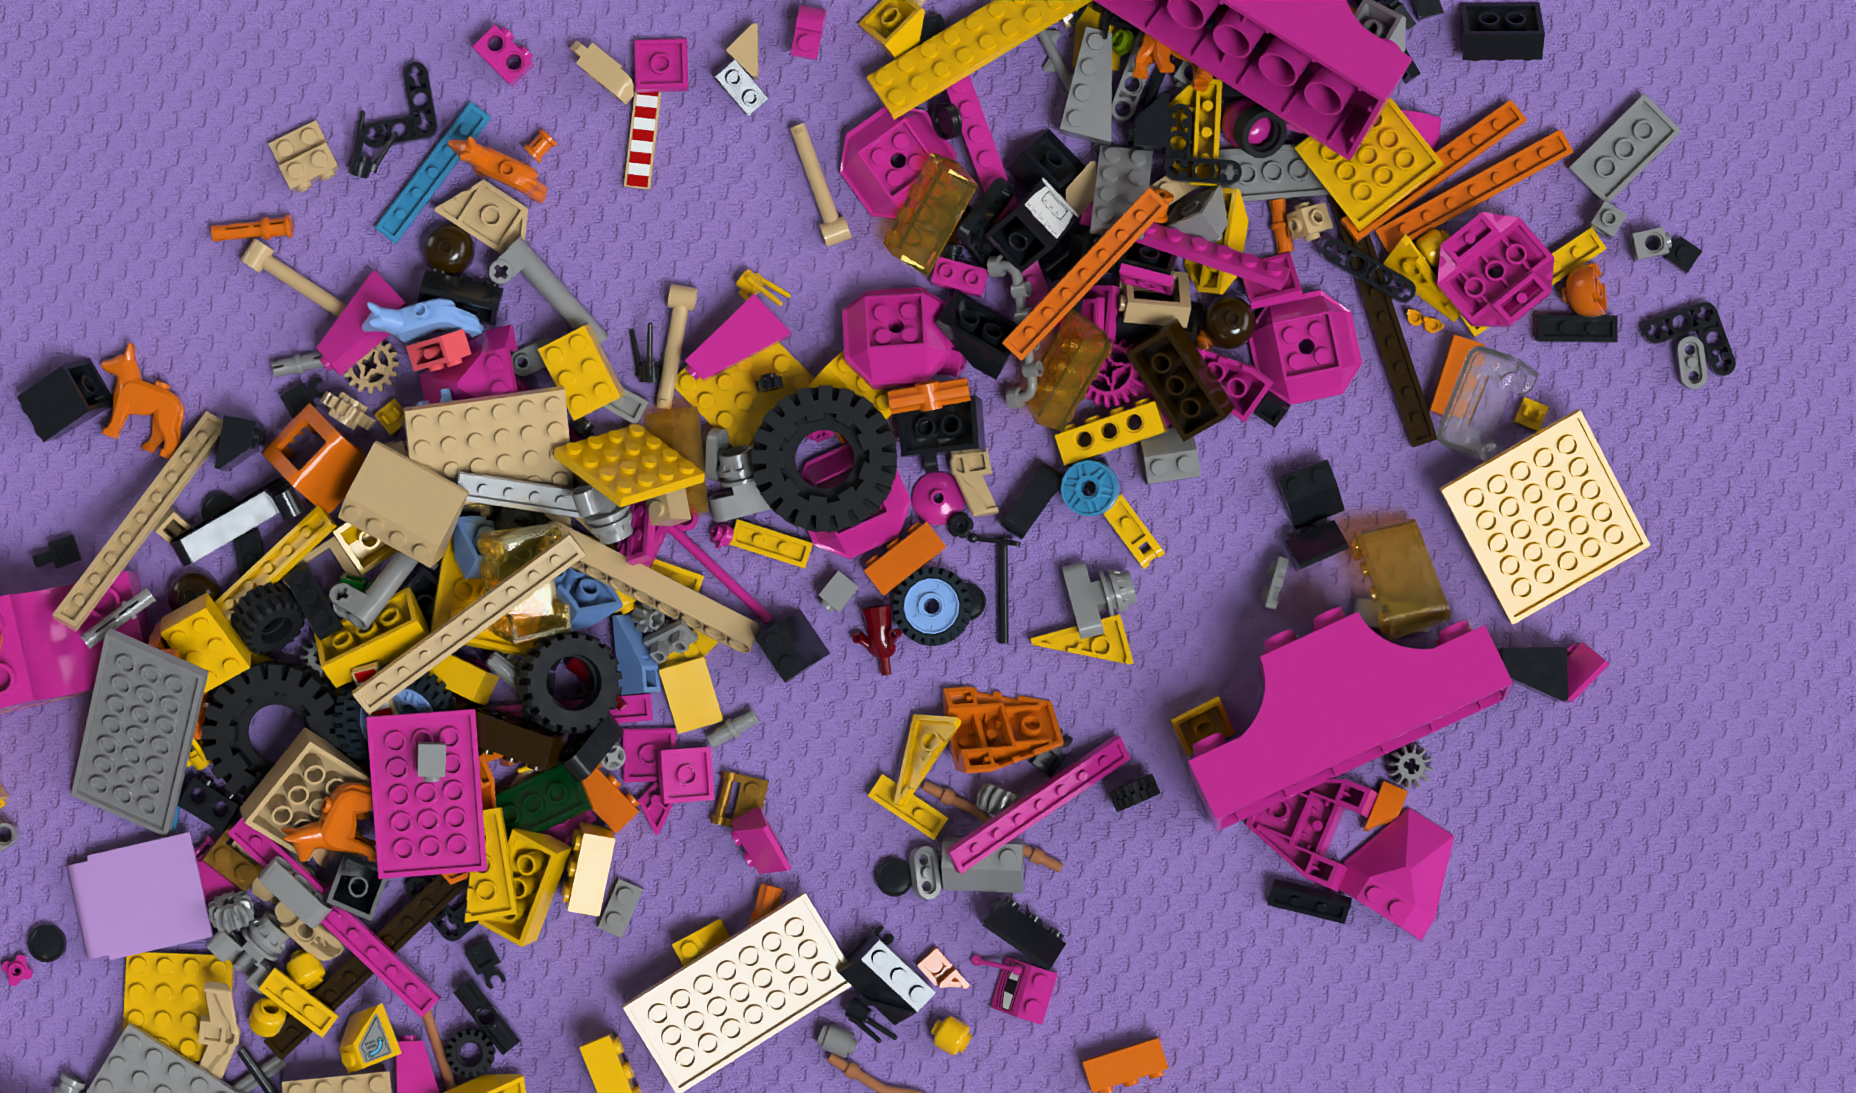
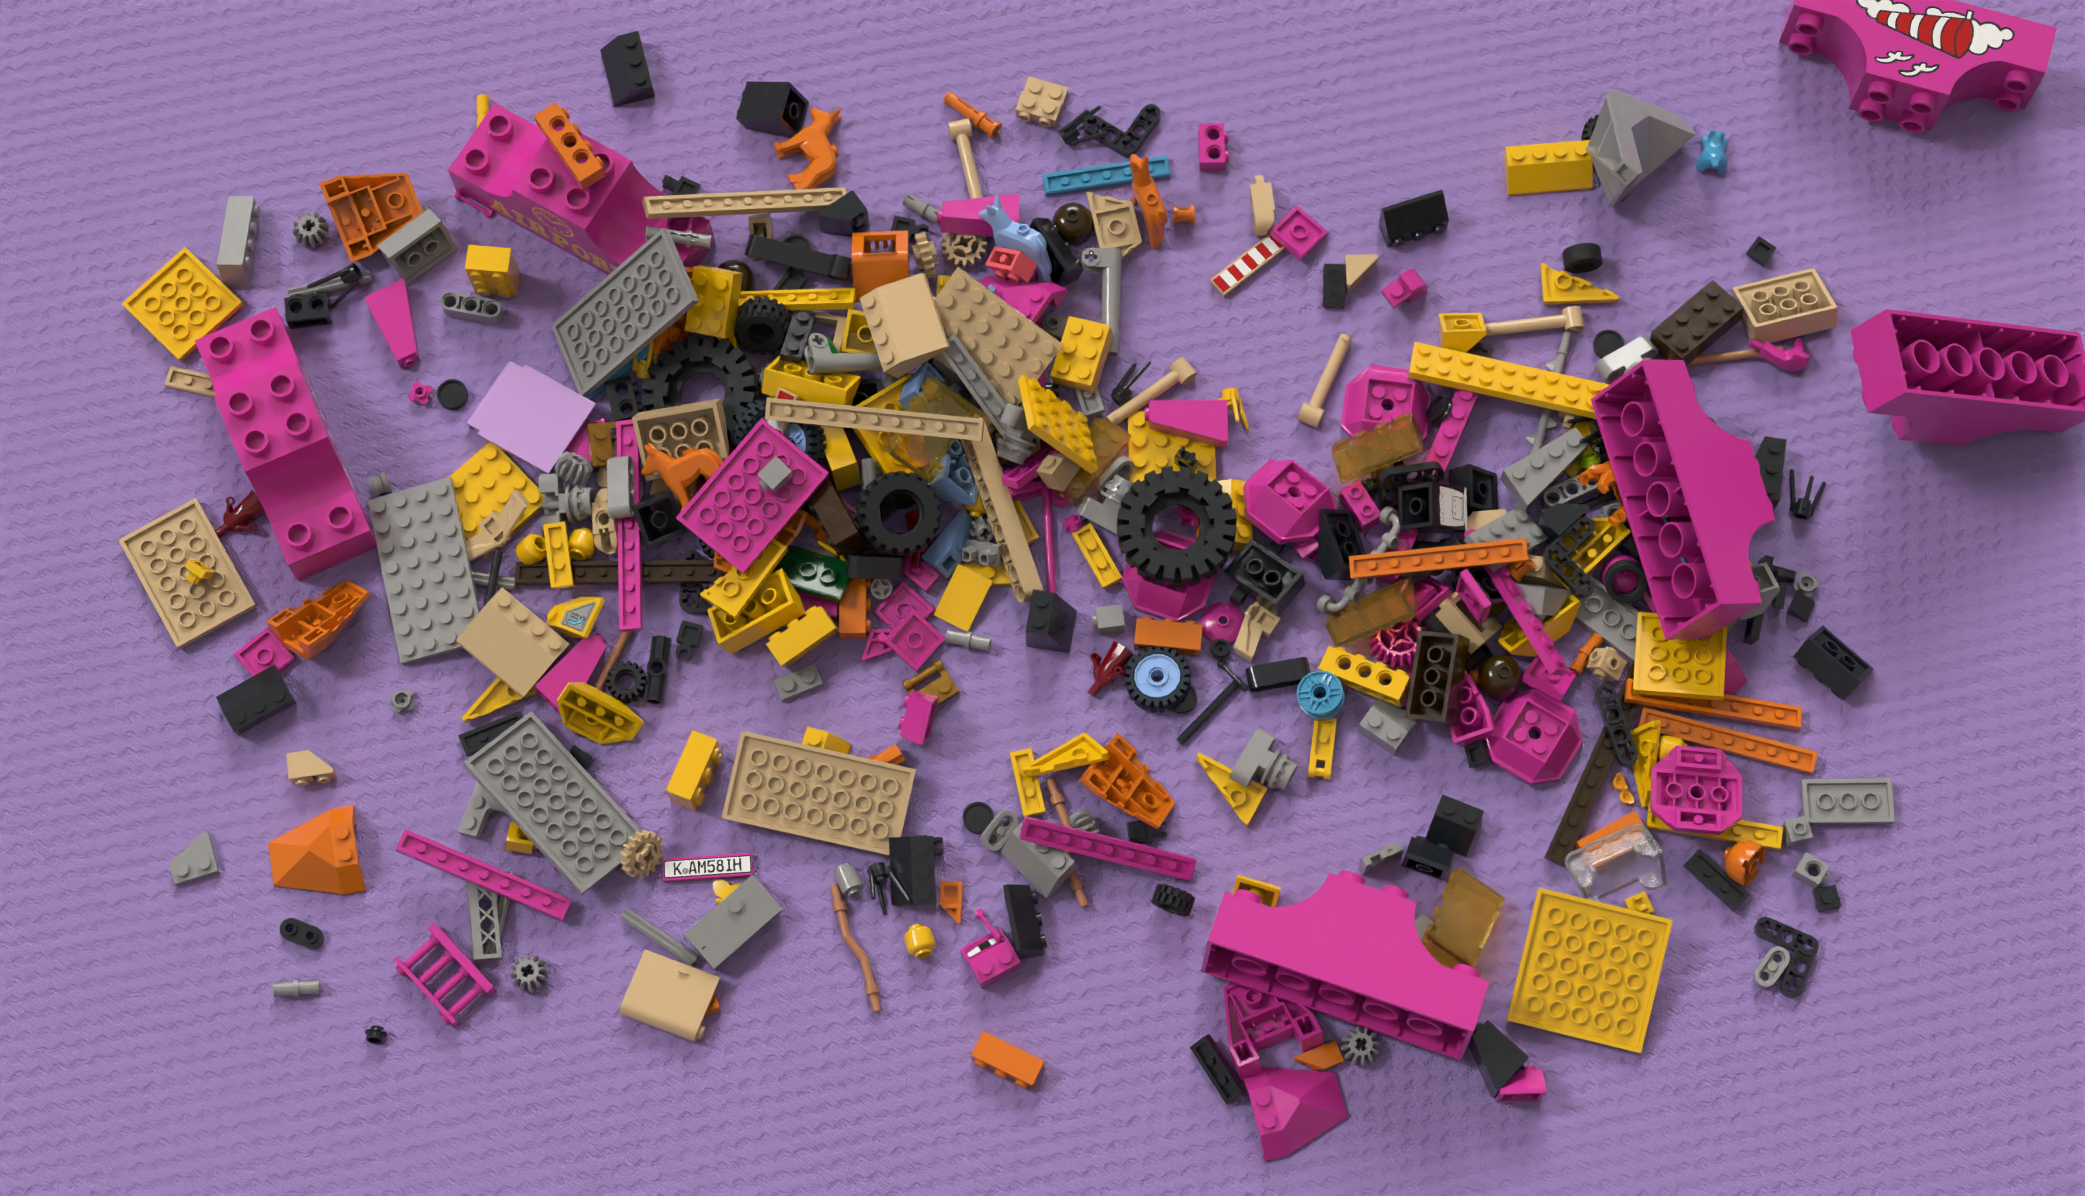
camera: 45 degrees right, 15 degrees down
(929, 395) = (1275, 547): orange piece -> none

